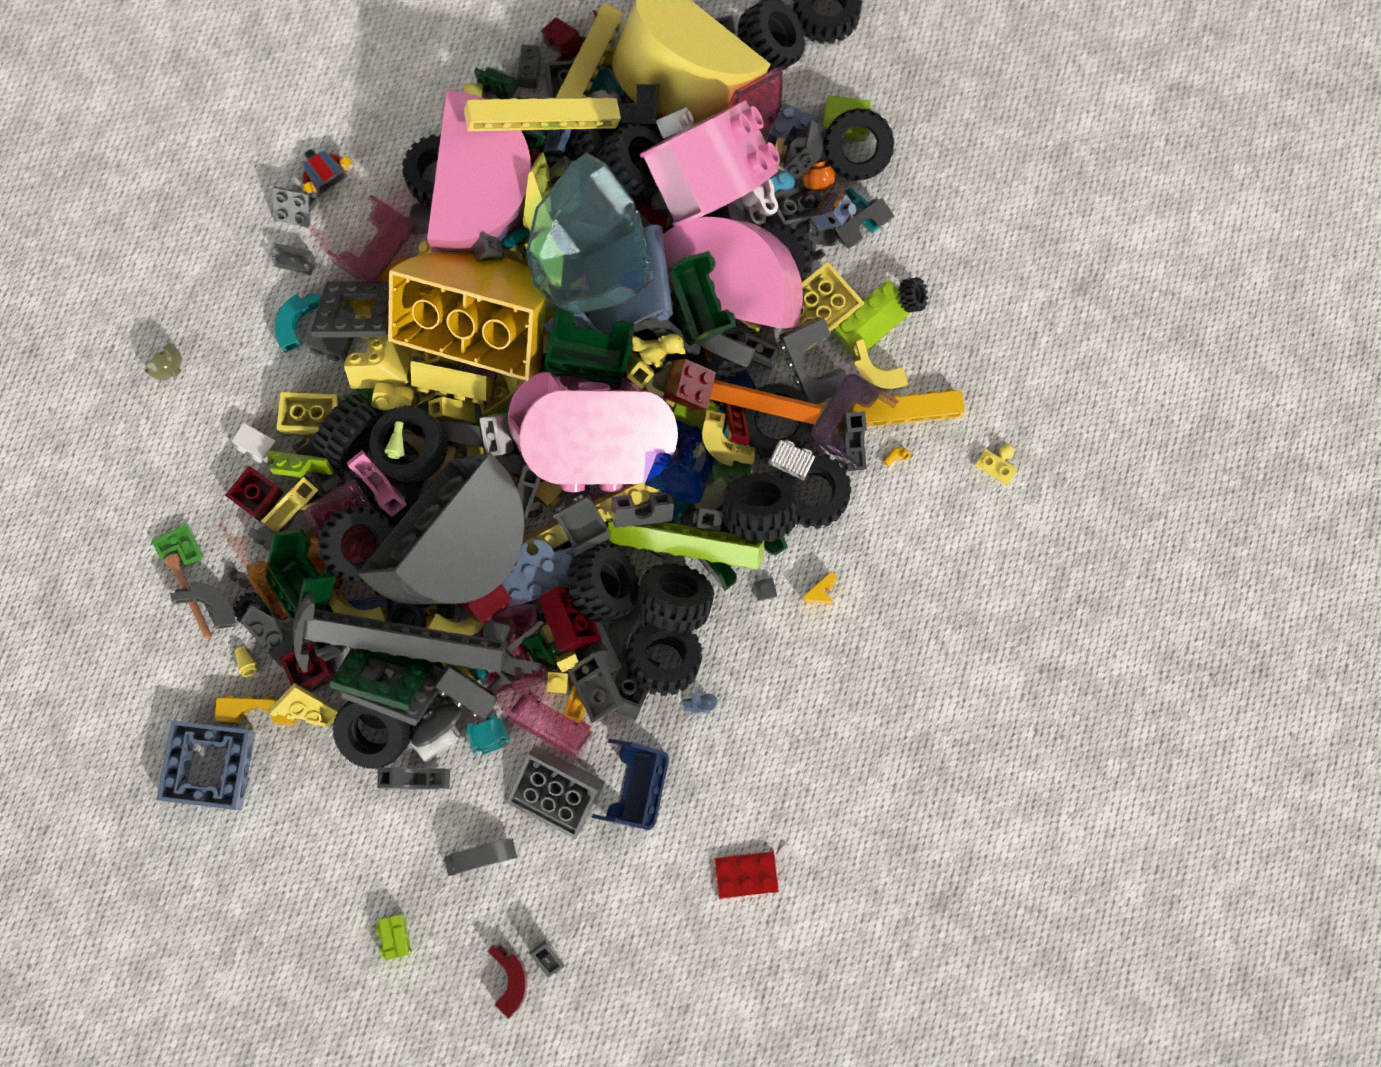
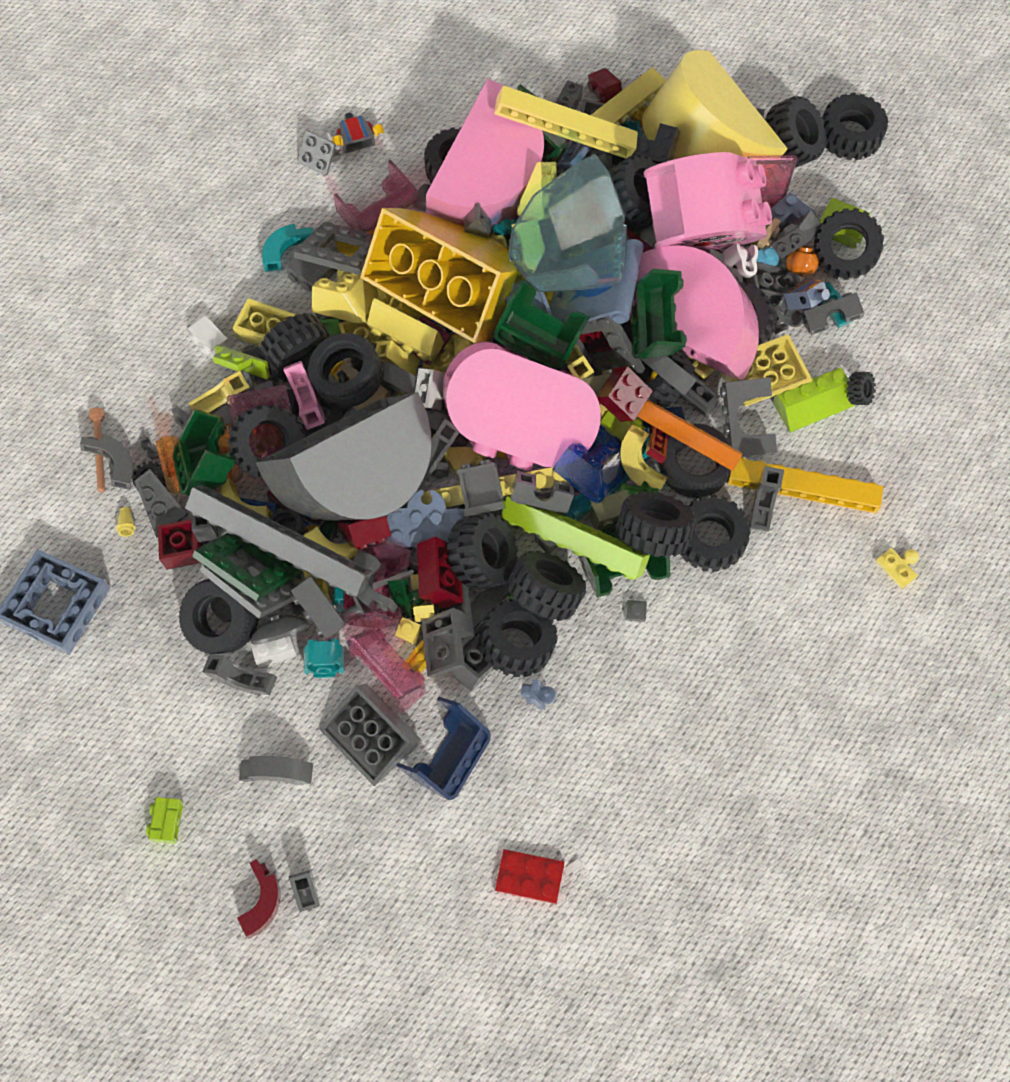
camera: 15 degrees right, 10 degrees down
(165, 364) = (156, 247): olive cylinder -> none
(179, 540) = (108, 398): bright green plate -> none
(233, 709) = (98, 560): yellow arch -> none
(254, 493) = (190, 377): dark red brick -> none
(293, 259) = (302, 196): dark grey hinge -> none
(304, 613) = (194, 483): dark grey slope -> none
(304, 705) = (163, 574): light yellow wing -> none
(389, 397) = (340, 323): light yellow brick -> none
(395, 445) = (332, 364): yellowish green cone -> none
(655, 350) = (601, 354): light yellow animal -> none
(714, 522) = (609, 520): dark grey brick -> none
(792, 459) = (700, 494): white brick -> none
(817, 593) = (686, 629): yellow slope -> none
(851, 391) = (774, 452): windscreen -> none
(880, 377) = (811, 454): light yellow arch -> none
(896, 454) = (801, 527): yellow arm -> none

